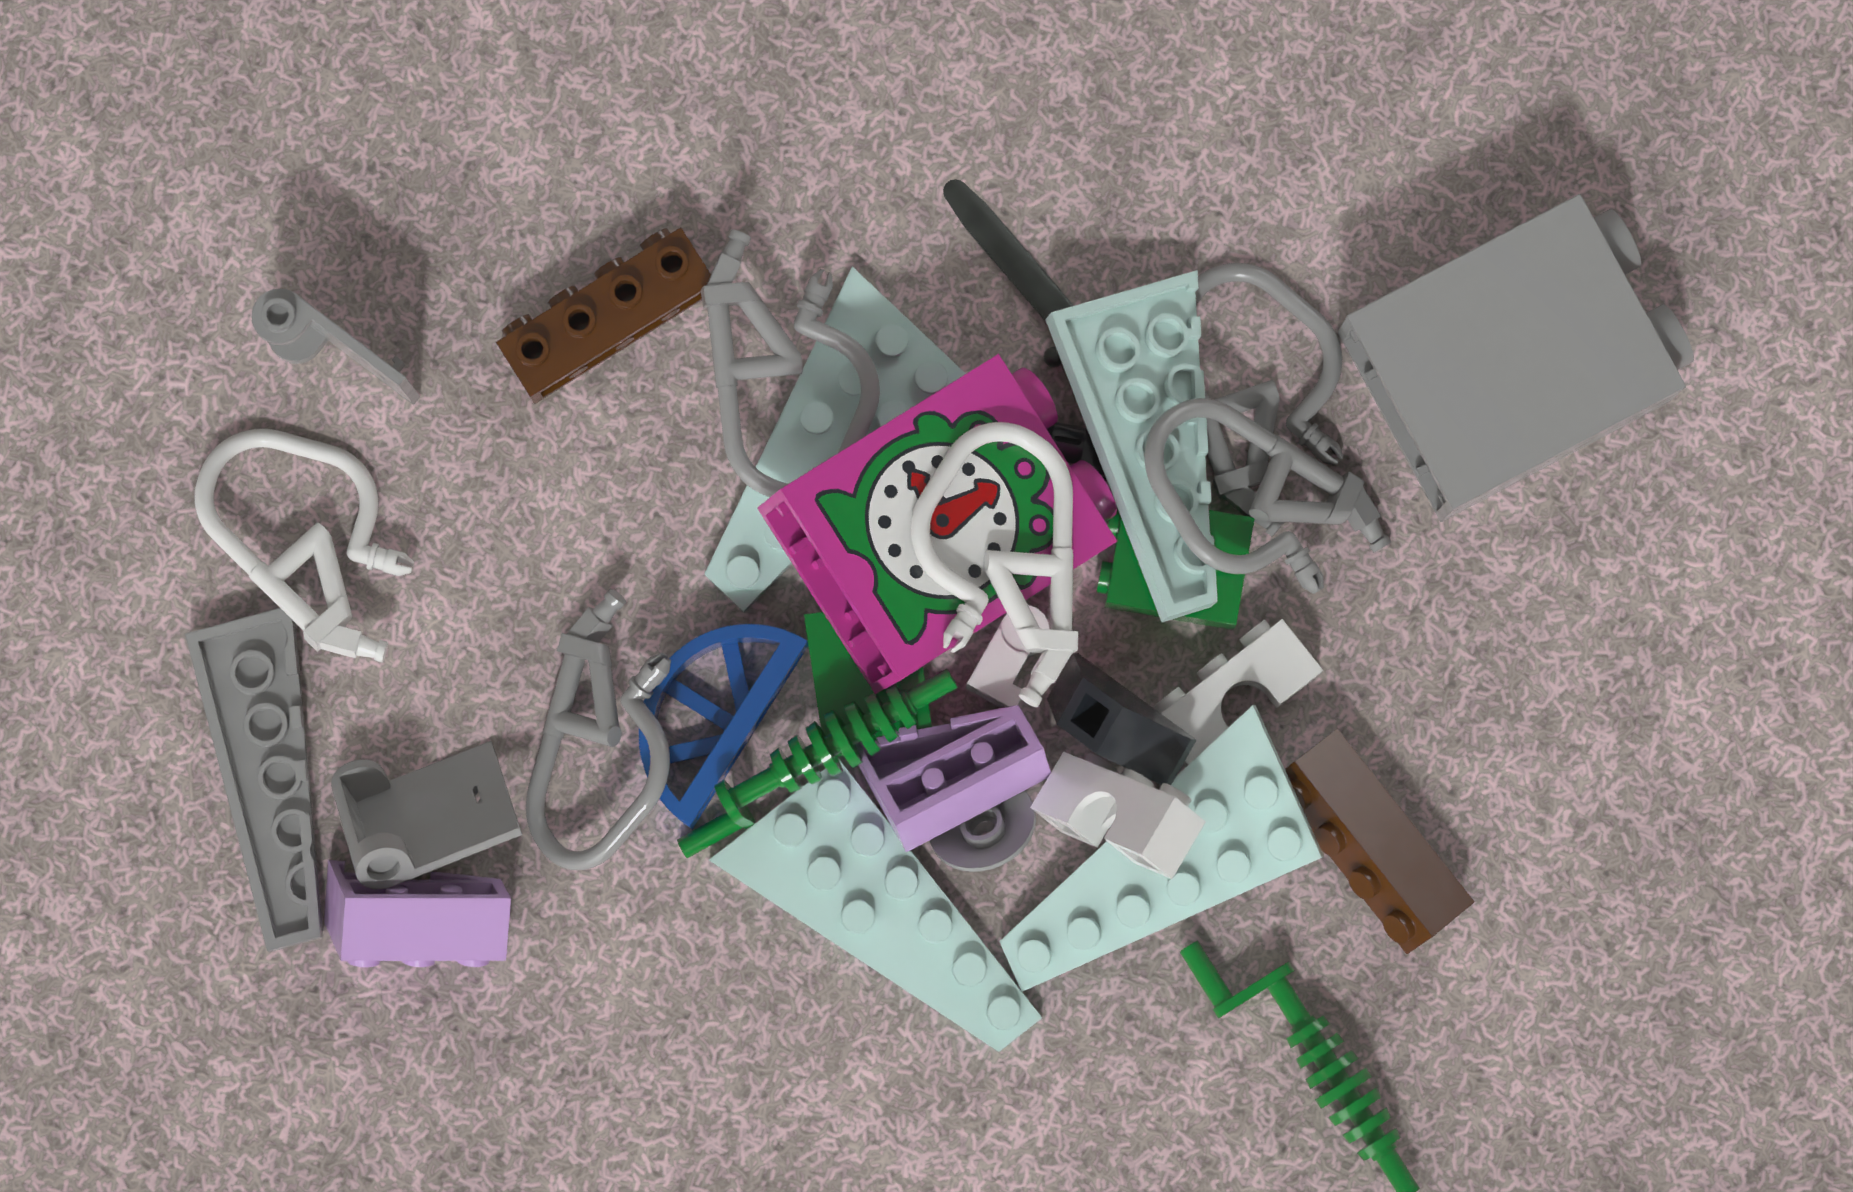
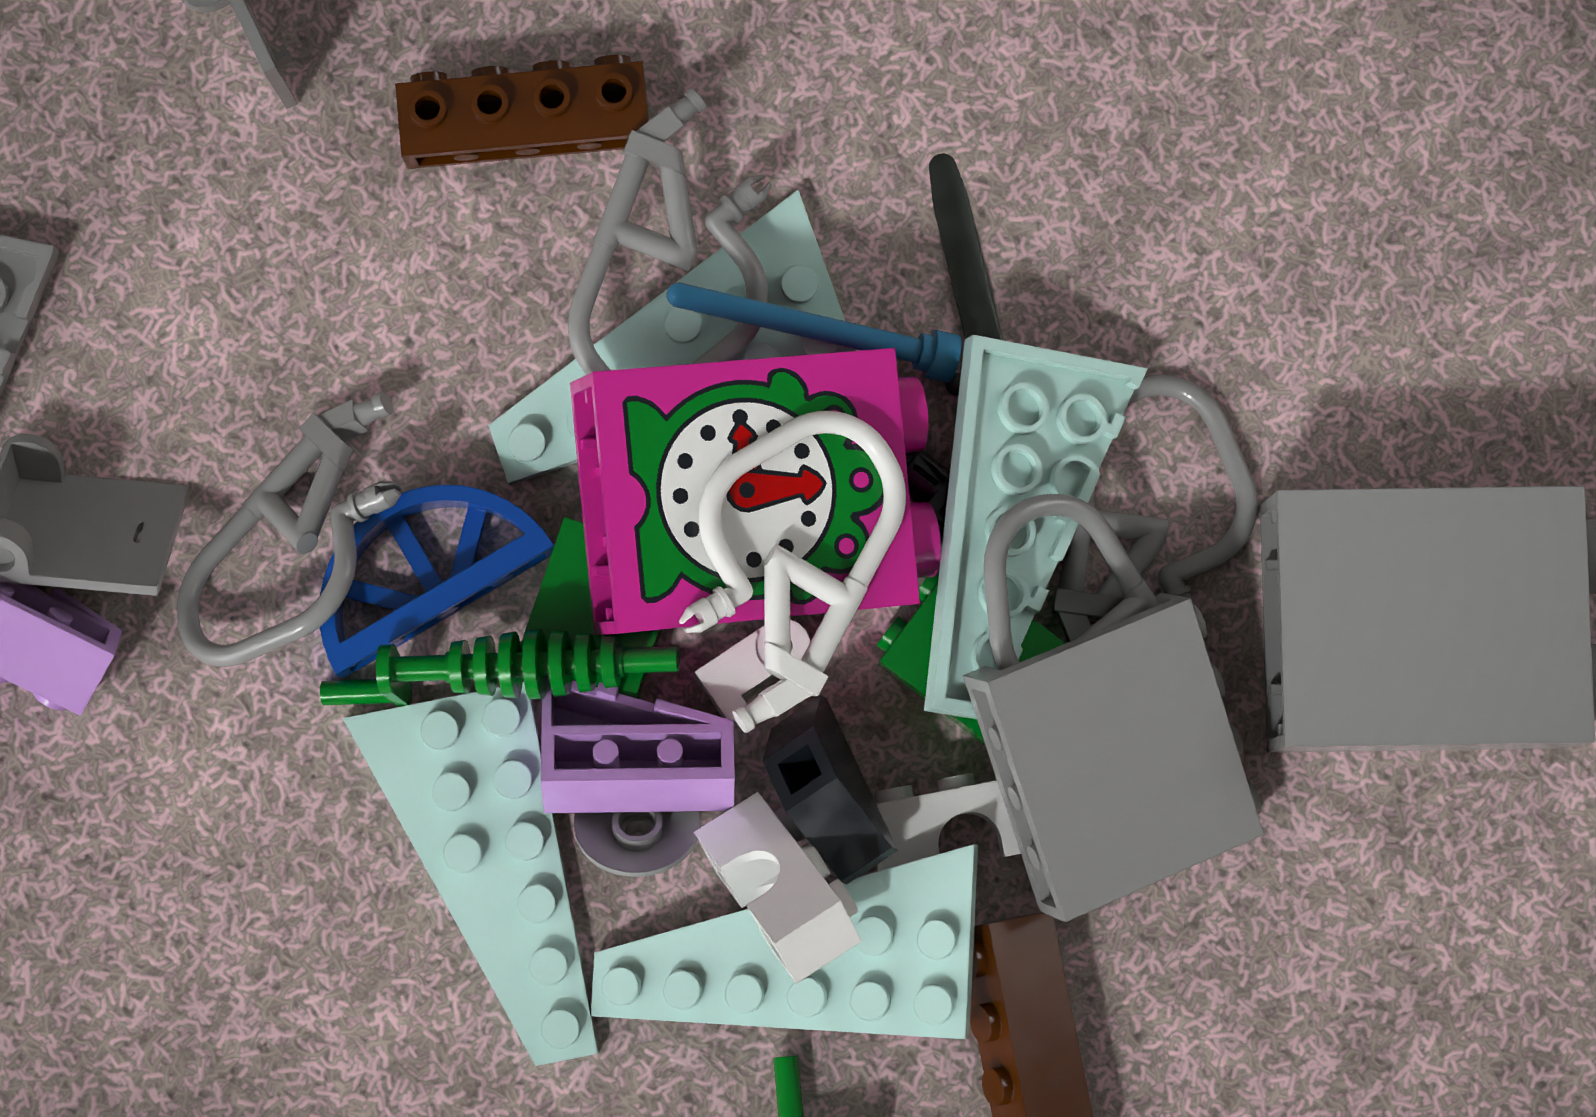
camera: 25 degrees right, 0 degrees up
(328, 629) = (79, 288): white piece -> none
(1025, 342) = (932, 354): none -> dark azure piece
(1328, 584) = (1116, 758): none -> light grey panel

